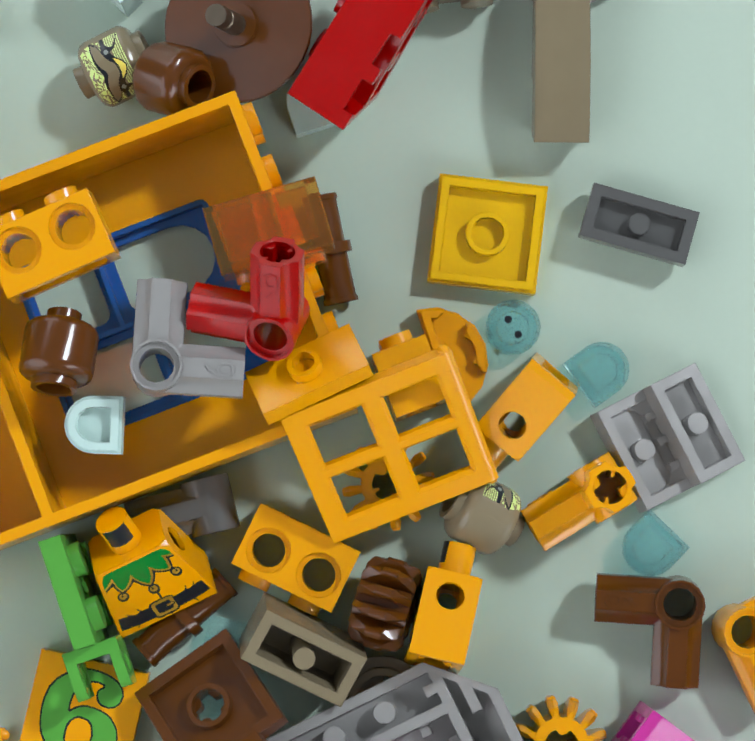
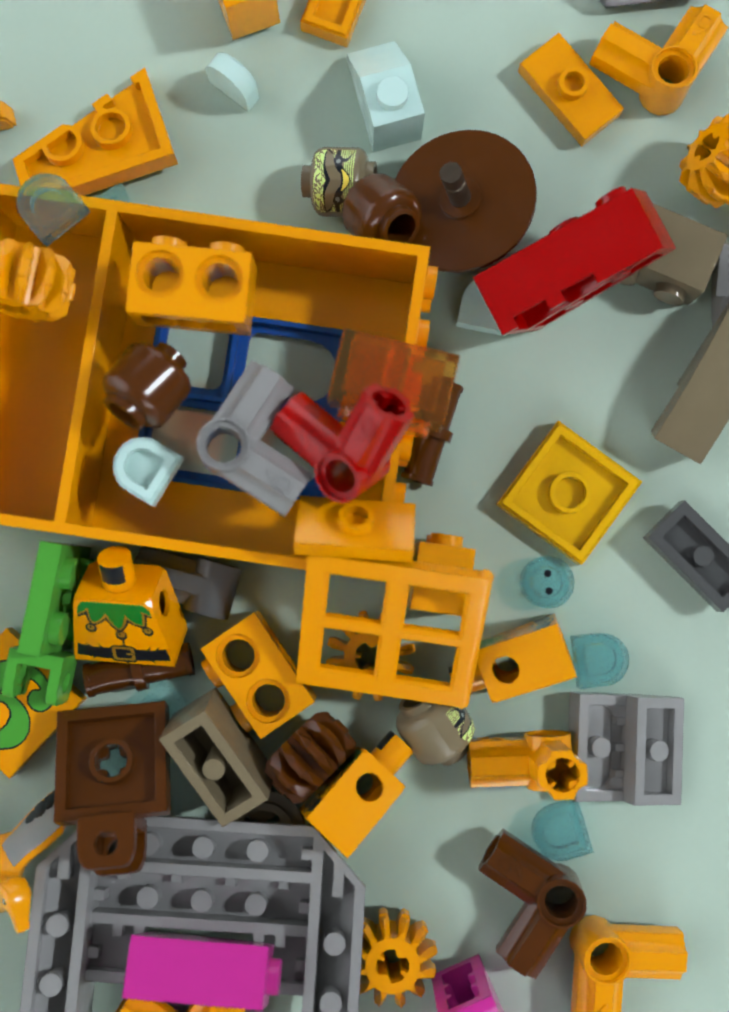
camera: 25 degrees right, 0 degrees up
(463, 338) = (494, 555): light orange tile -> none

